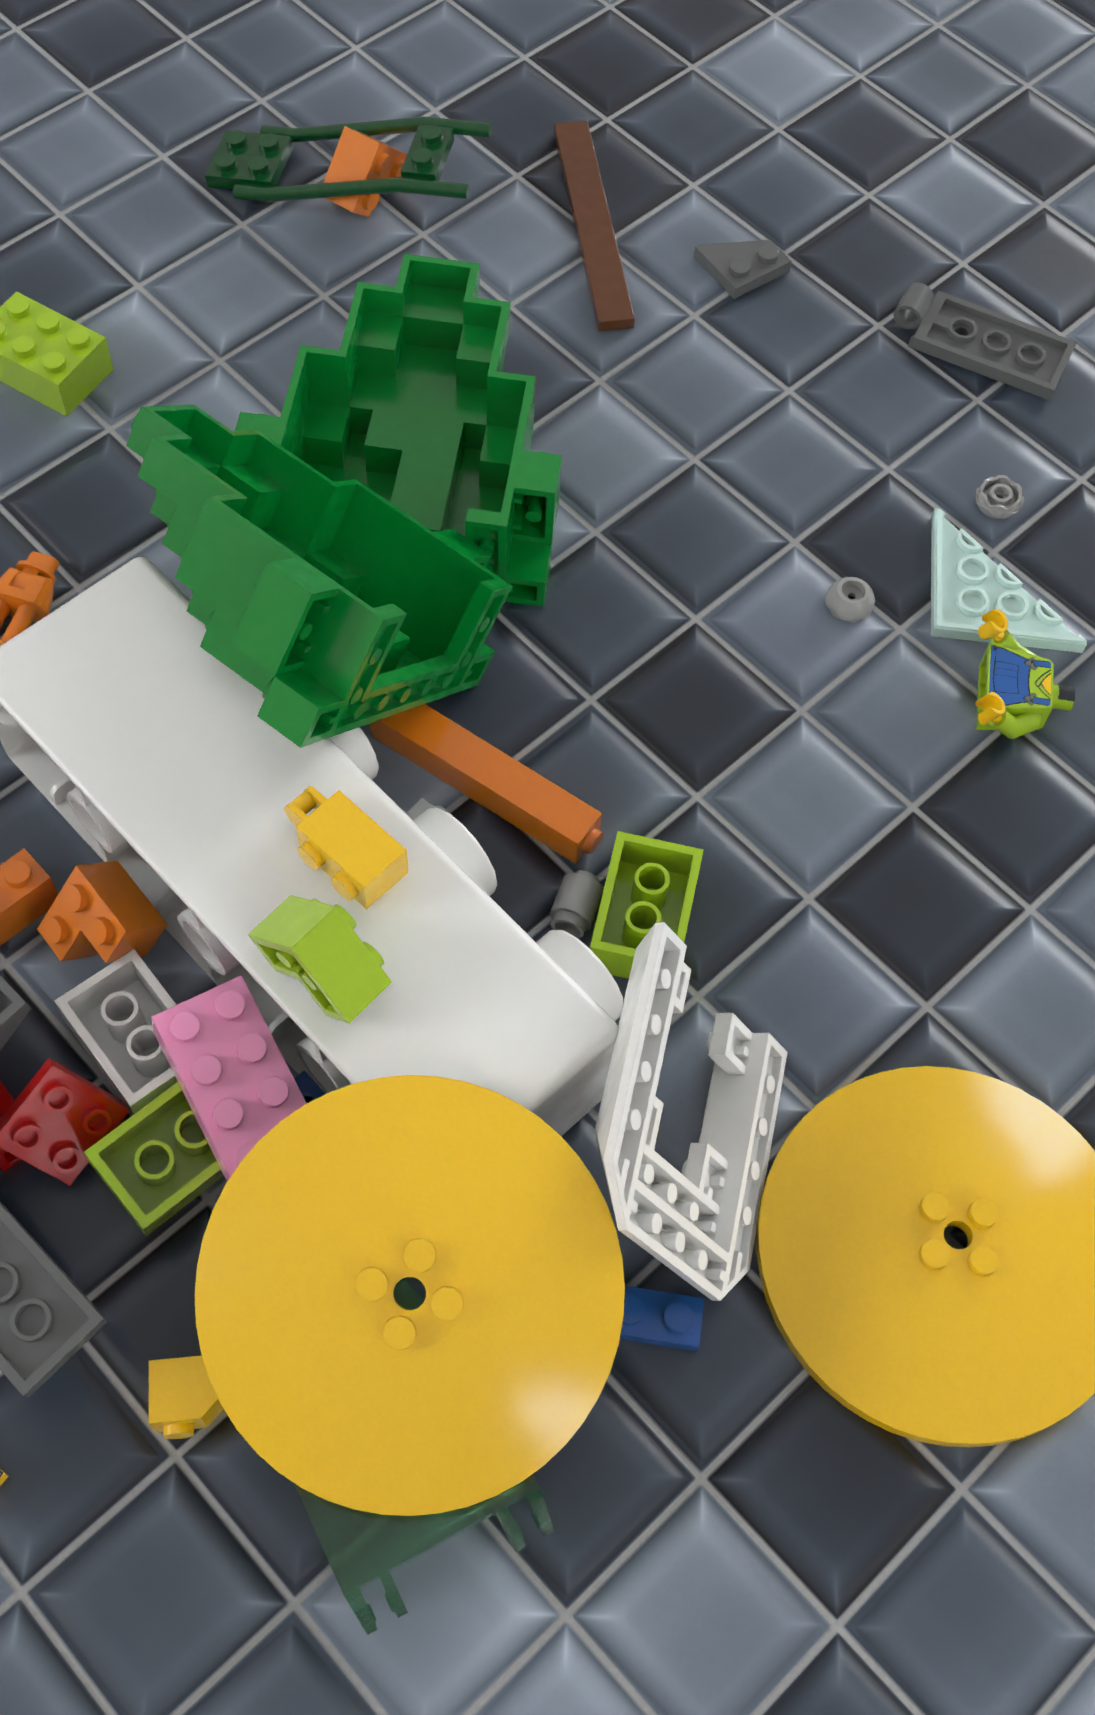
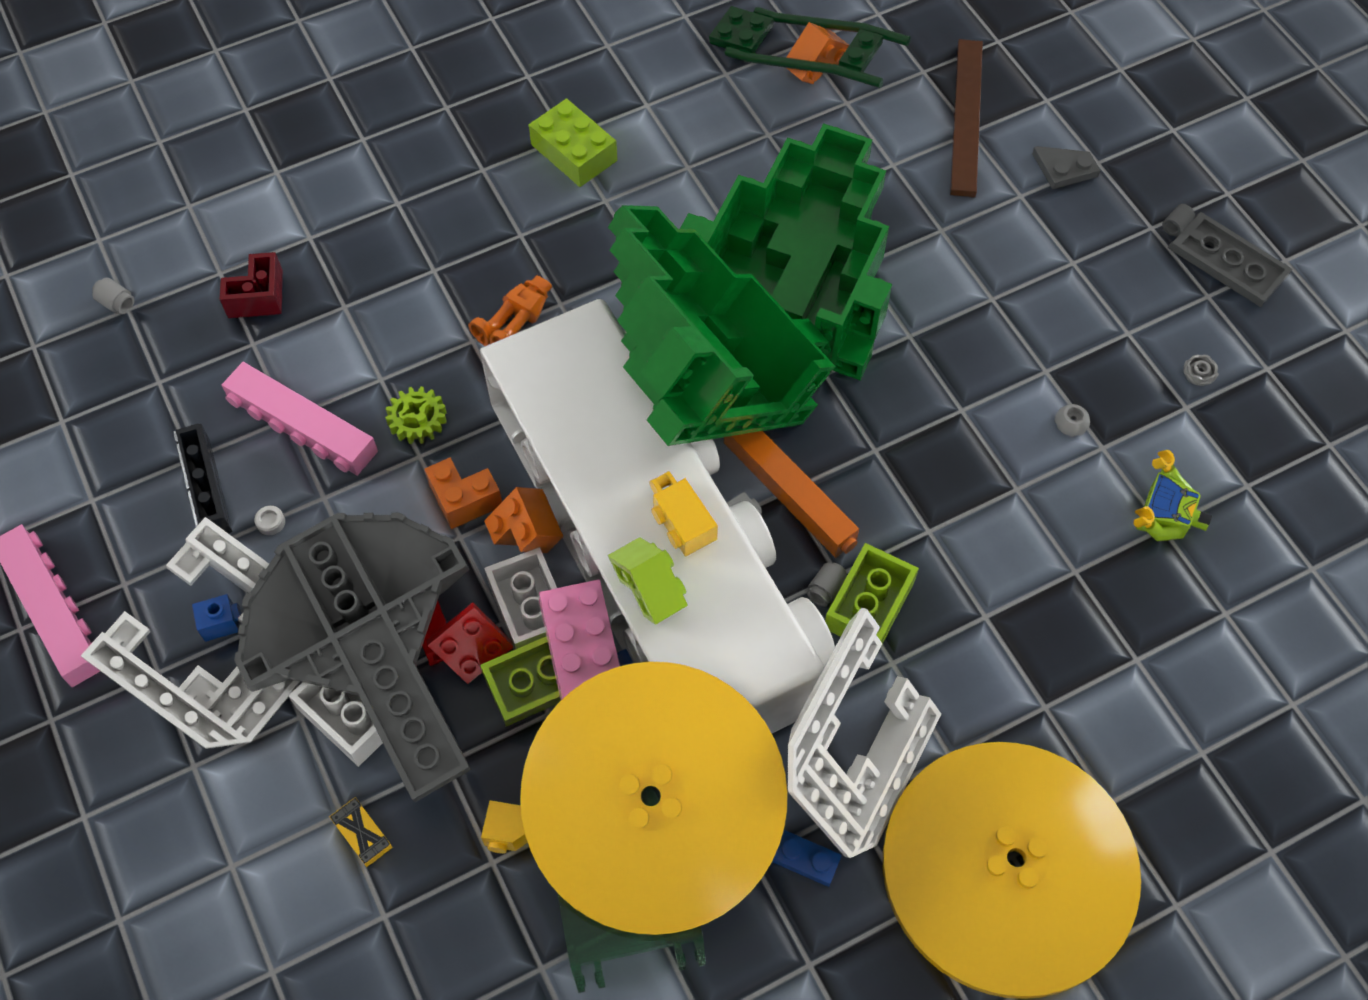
camera: 20 degrees right, 0 degrees up
(971, 584) = (1162, 427): light aqua tile -> none

